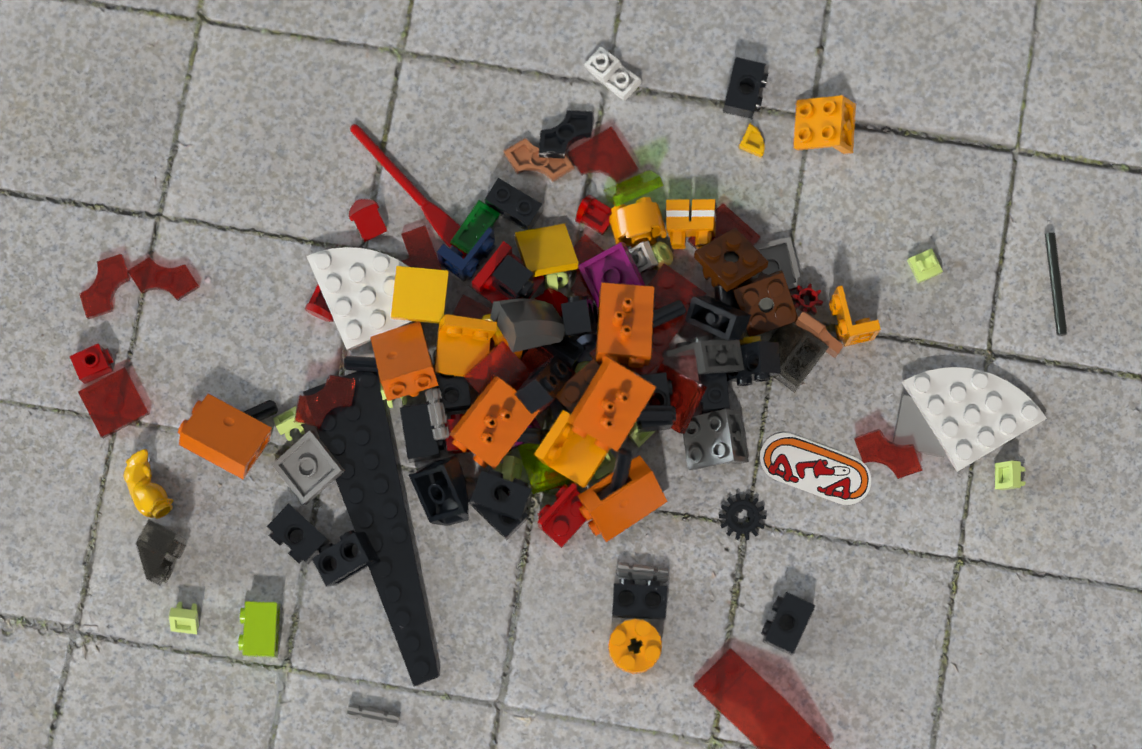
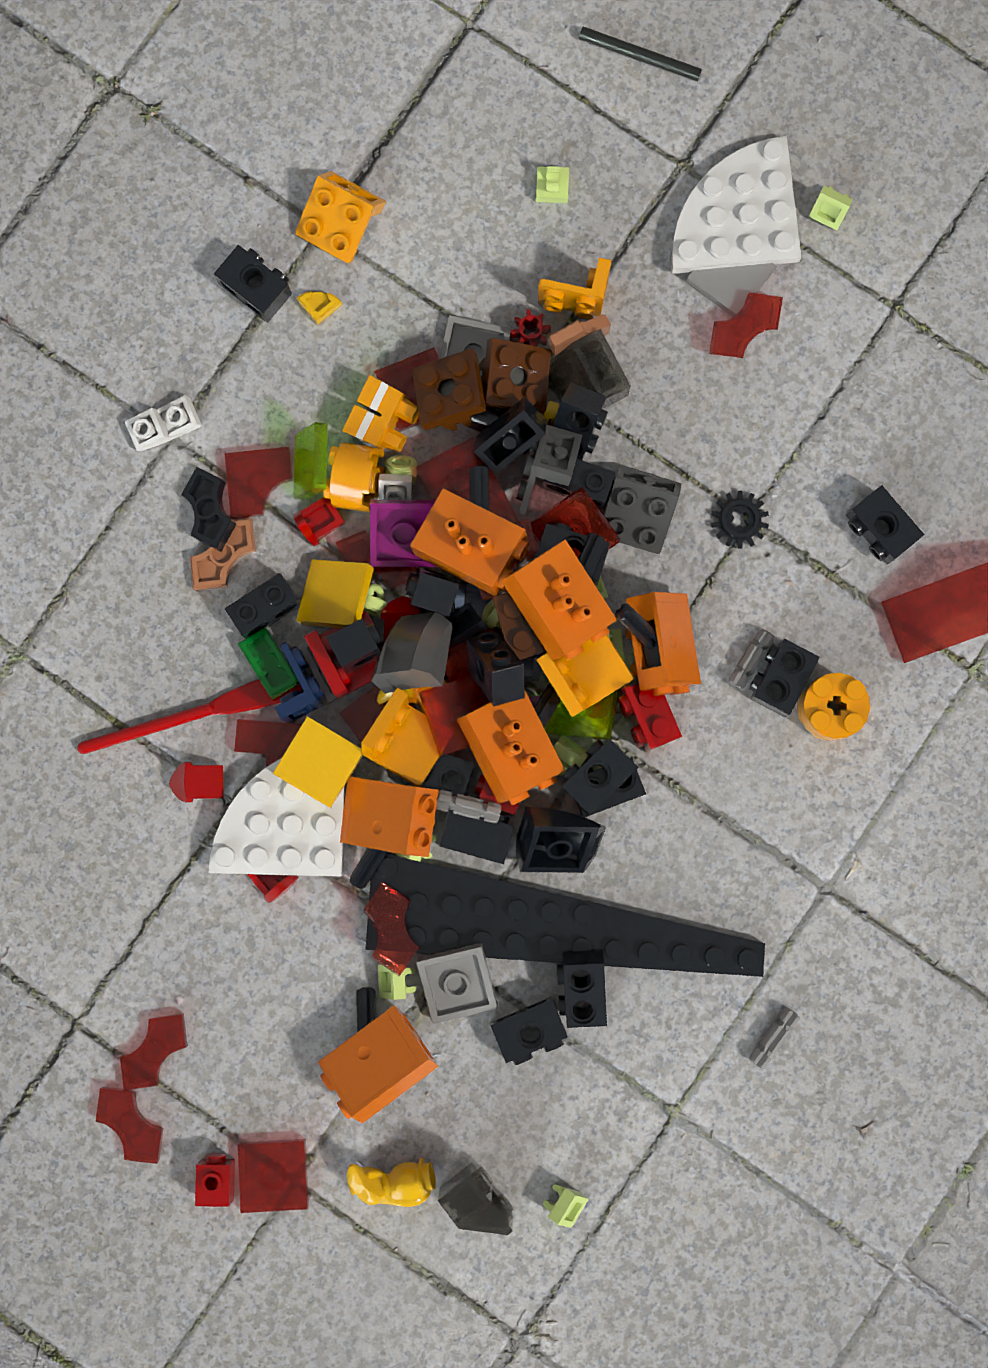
camera: 60 degrees left, 5 degrees up
(260, 629) = (619, 1123): lime brick -> none
(815, 468) = (722, 414): sticker -> none

